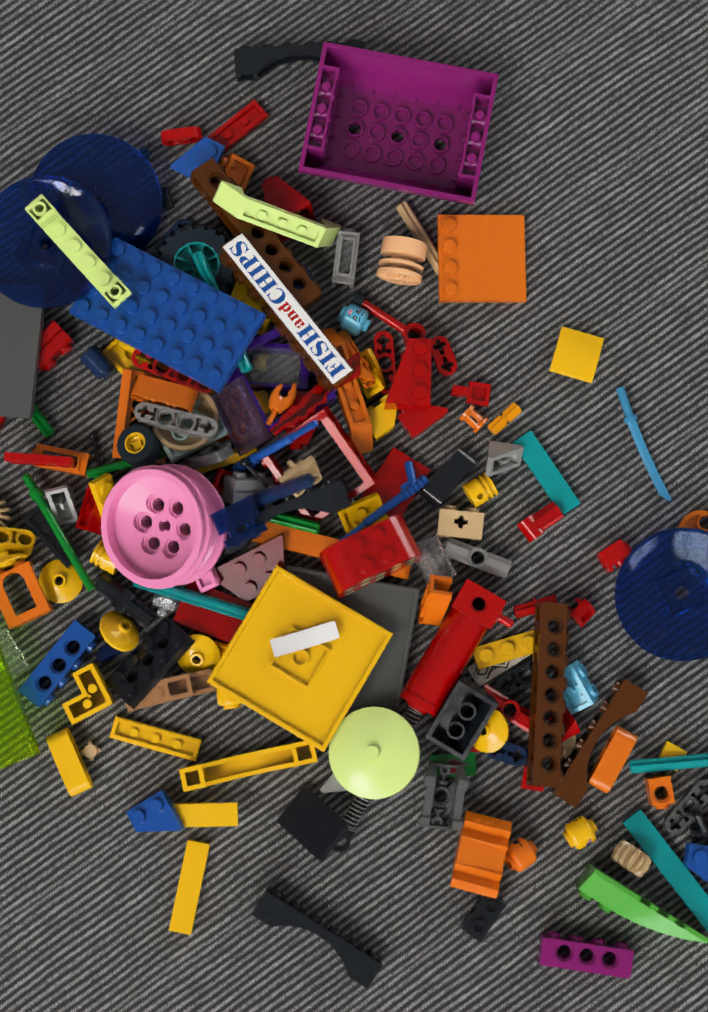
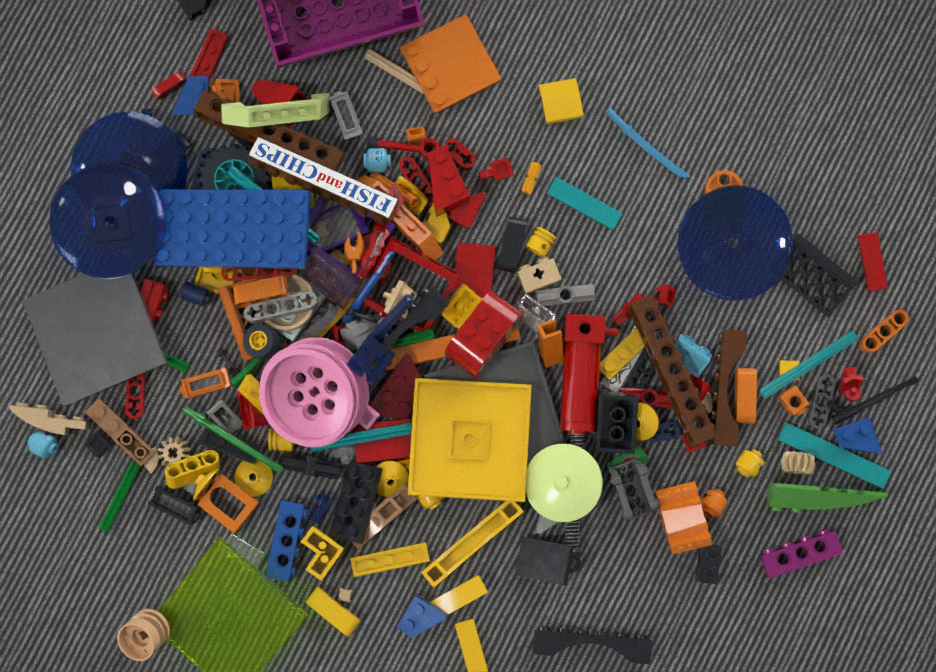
camera: 30 degrees left, 0 degrees up
(39, 460) = (190, 391): red tile -> none
(78, 251) = (139, 215): yellowish green slope -> none
(119, 631) = (320, 491): yellow dish -> none
(304, 639) = (466, 423): white sticker -> none
(401, 260) = (390, 96): light nougat wheel -> none
(407, 313) = (416, 135): none -> orange slope
(407, 489) = (485, 269): blue piece -> none
(466, 417) = (501, 192): orange bush -> none
(502, 457) = (545, 208): light grey slope -> none
(536, 524) = (597, 246): red piece -> none
(613, 555) = (667, 240): red brick -> none

